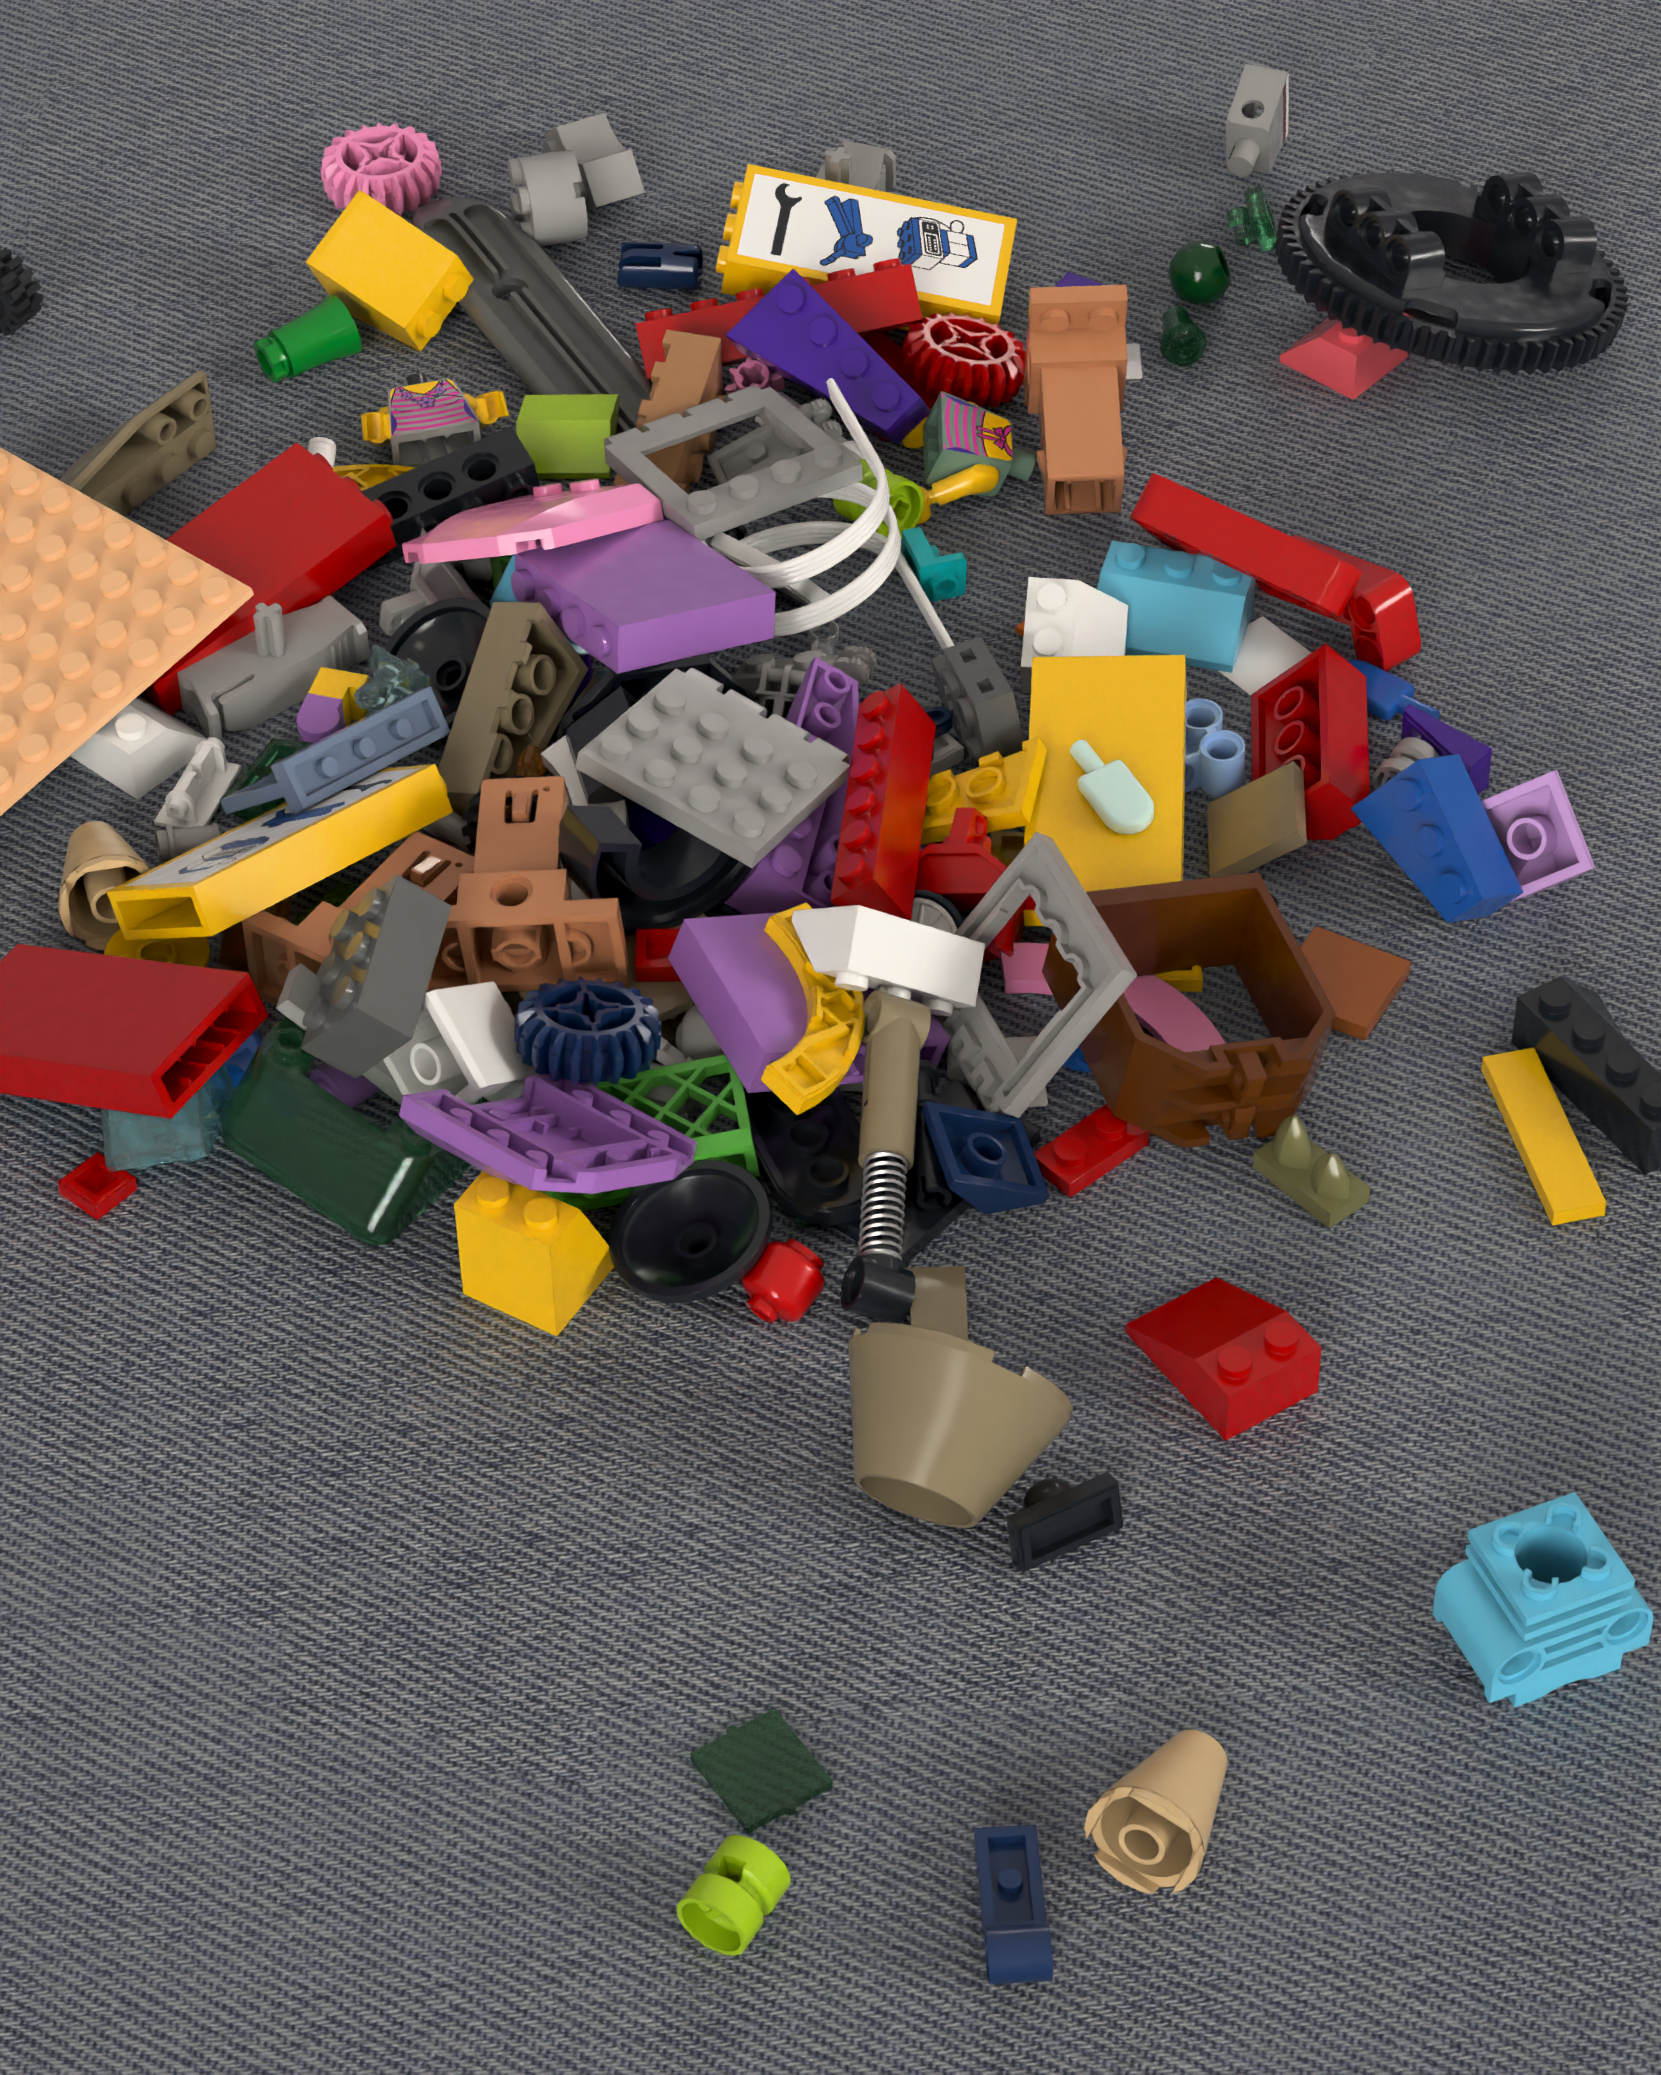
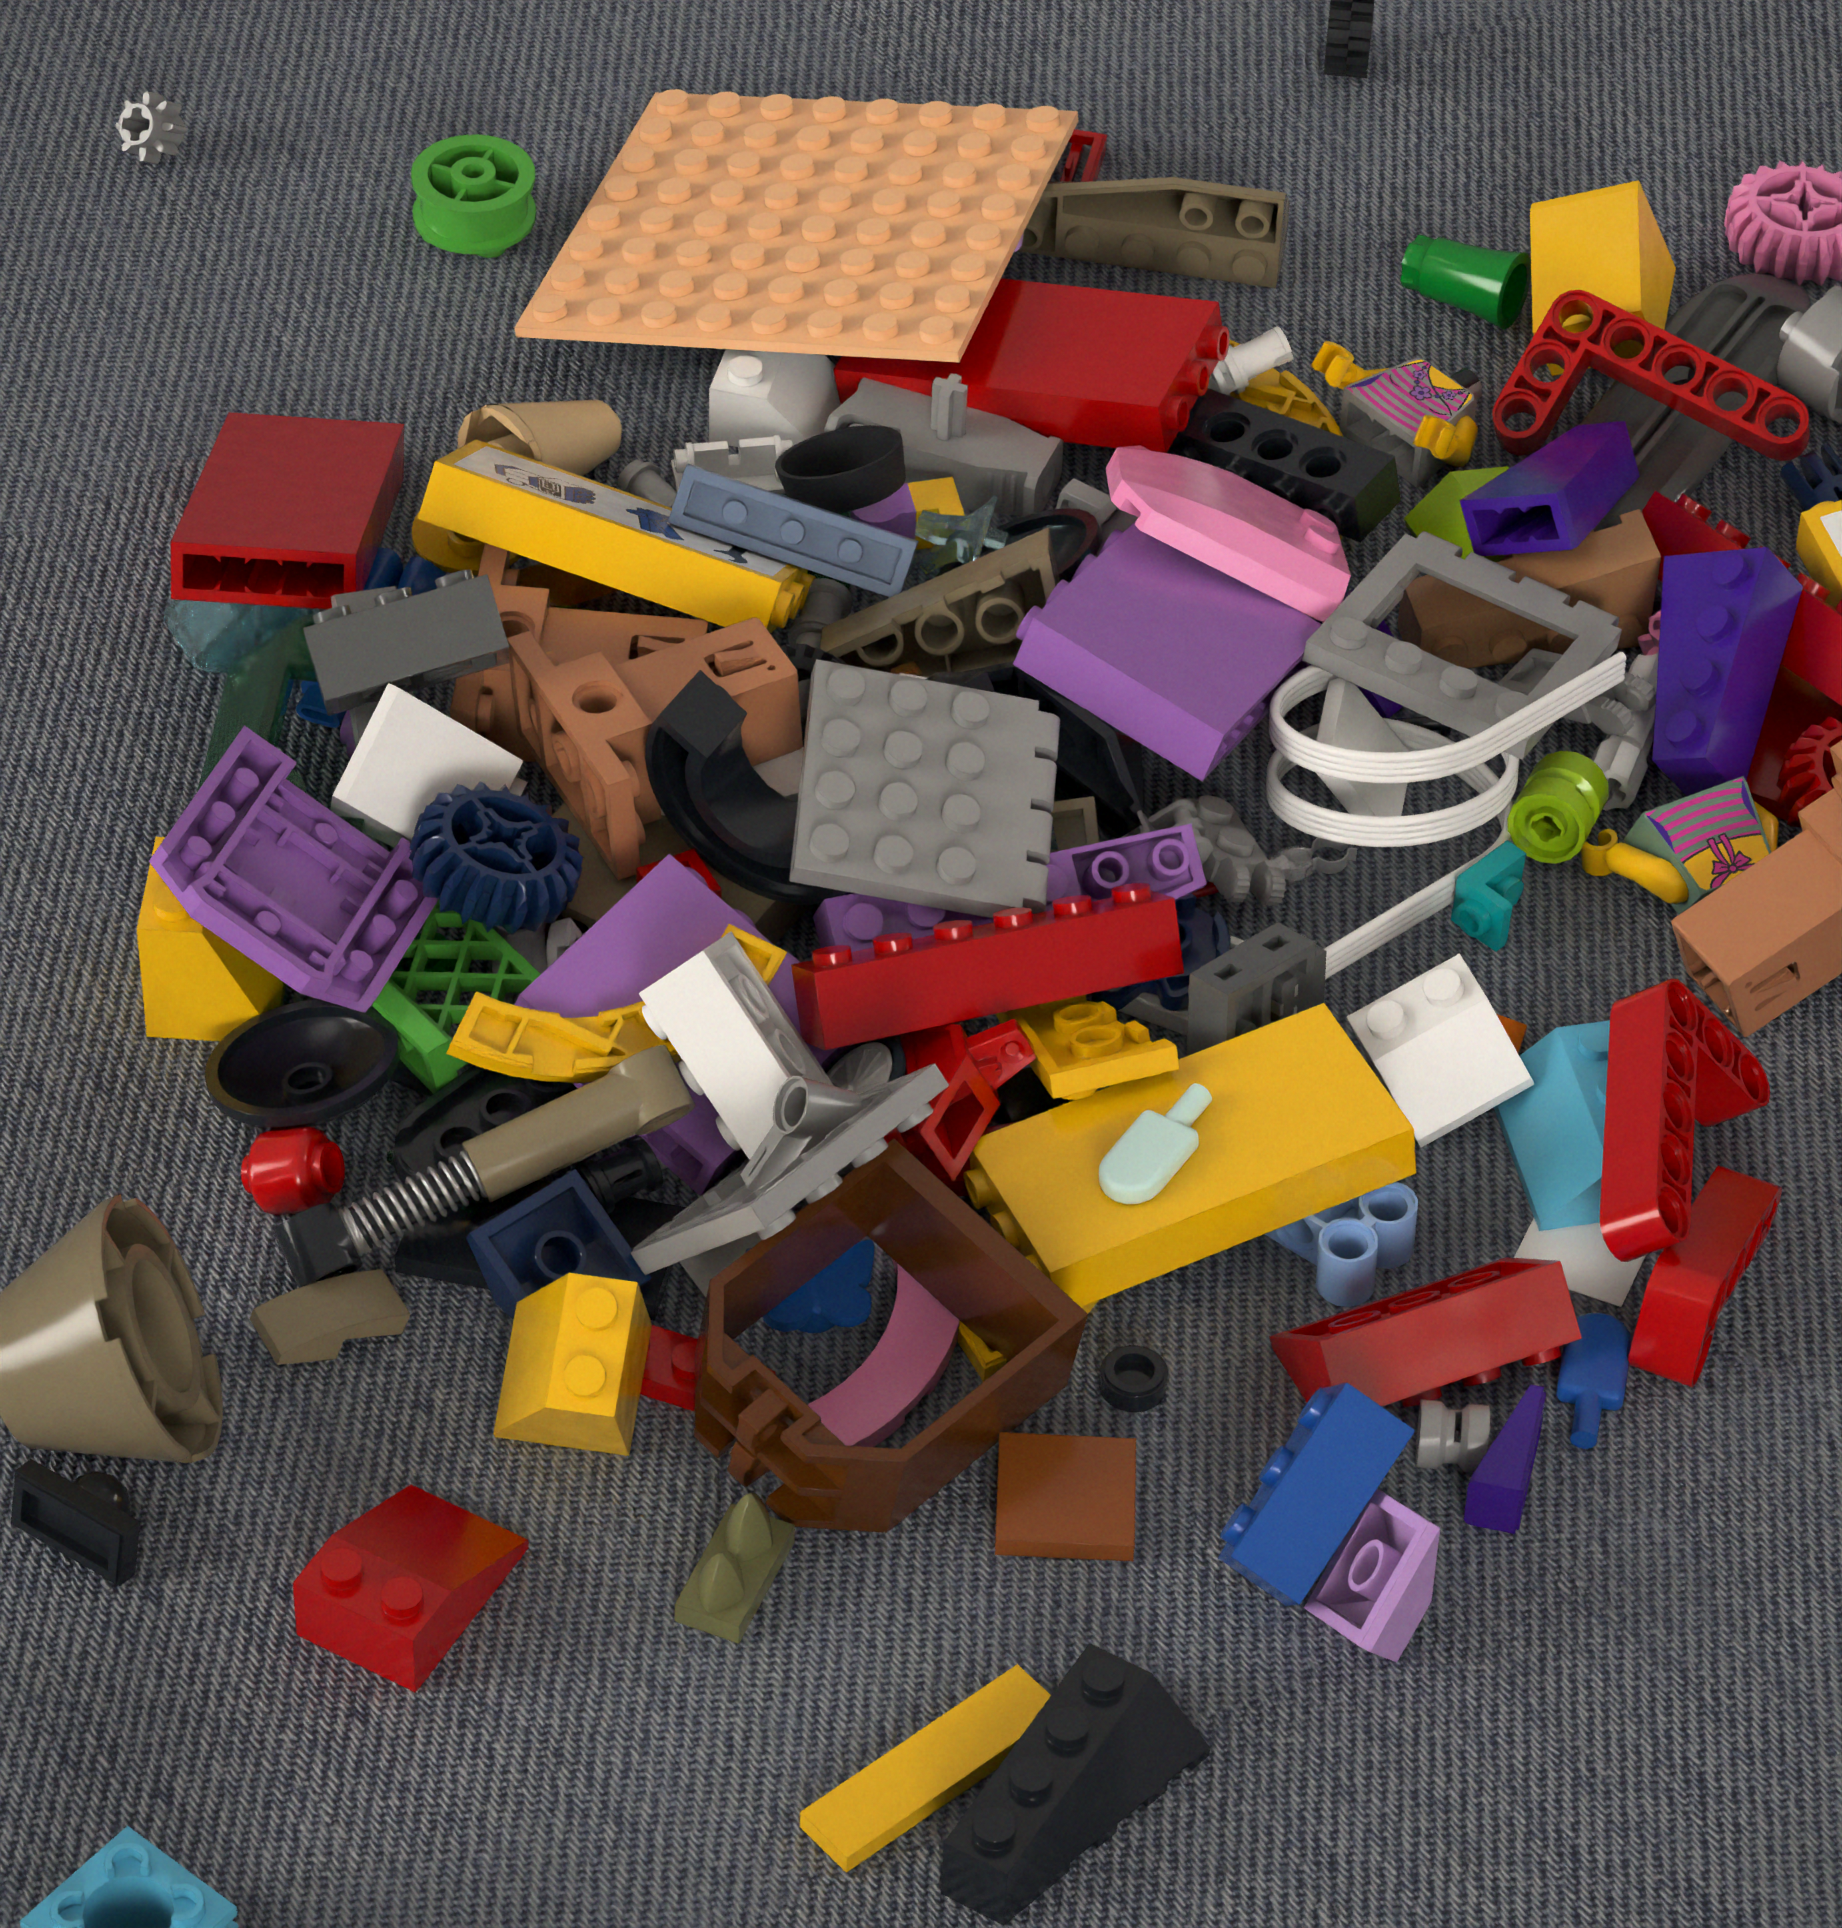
camera: 60 degrees right, 0 degrees up
(95, 1188) = (143, 626): red tile -> none
(258, 694) = (844, 468): none -> black tyre
(510, 283) = (1643, 373): none -> red beam
(615, 363) = (1553, 494): none -> dark purple slope
(1005, 962) = (801, 1119): none -> light grey piece
(1115, 1167) = (576, 1365): none -> yellow slope
(1257, 822) = (1253, 1321): dark tan tile -> none

